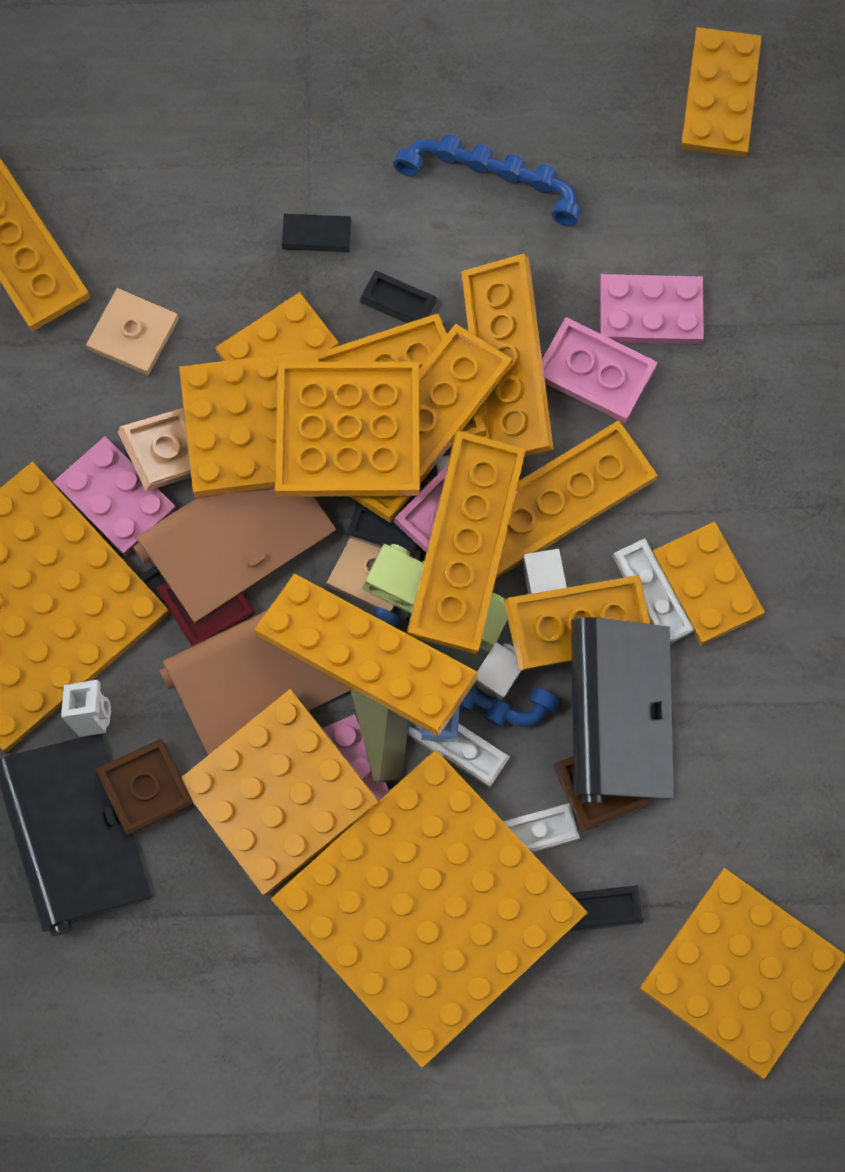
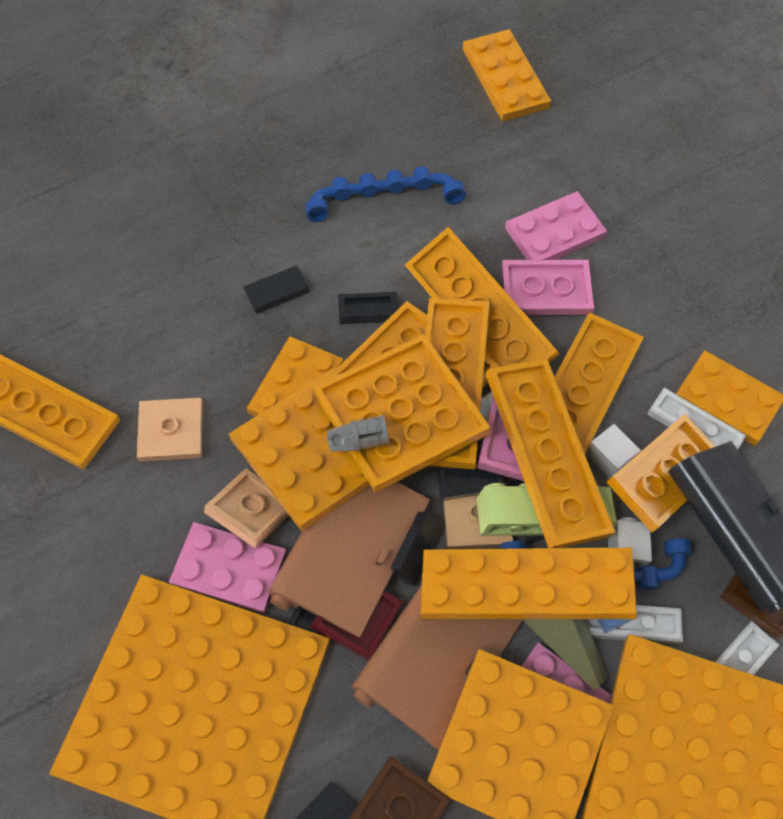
camera: 30 degrees left, 10 degrees down
(92, 711) = (309, 765): white brick -> none
(288, 433) = (358, 435): none -> light grey hinge
(305, 561) = (420, 537): none -> black tile

